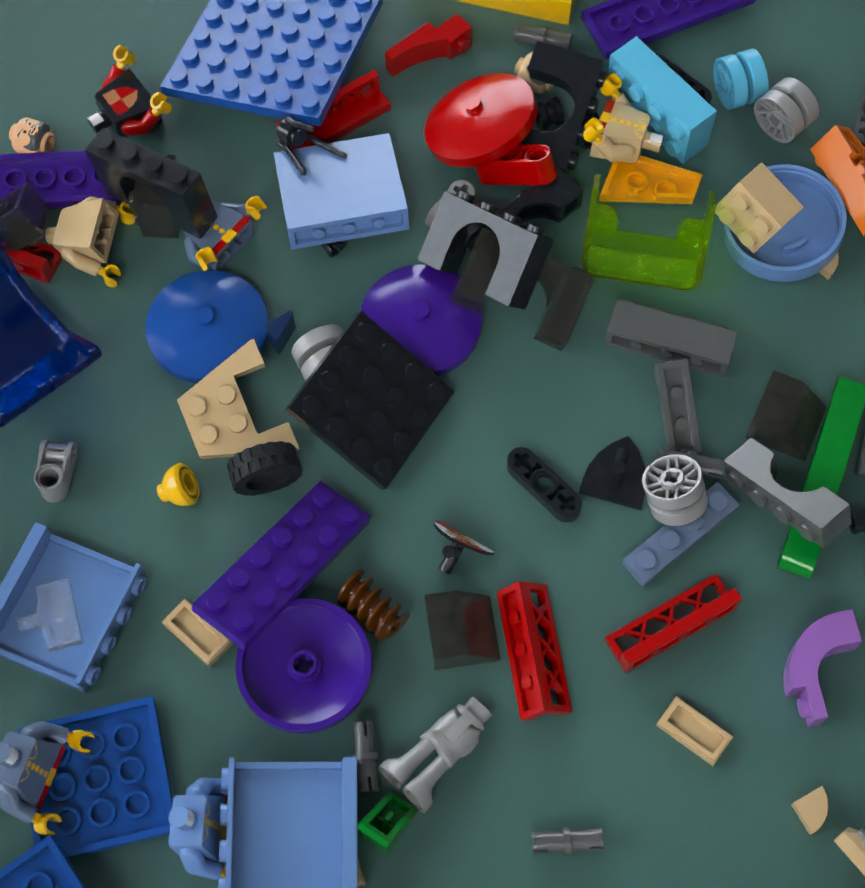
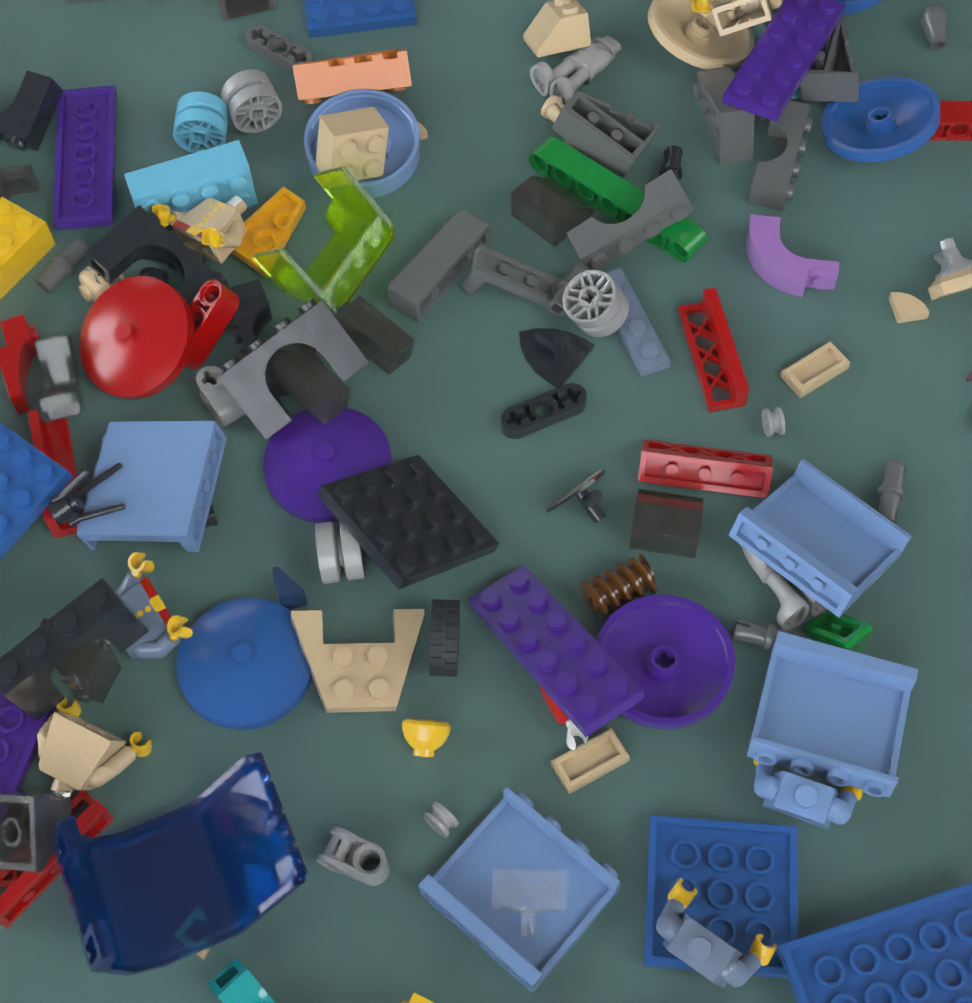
camera: 70 degrees left, 5 degrees down
(105, 524) = (440, 820): none -> light grey bush
(424, 84) = (60, 375): none -> clear smoke arch
(480, 778) = (821, 538): none -> medium blue panel
(609, 702) = (773, 421): none -> light grey bush

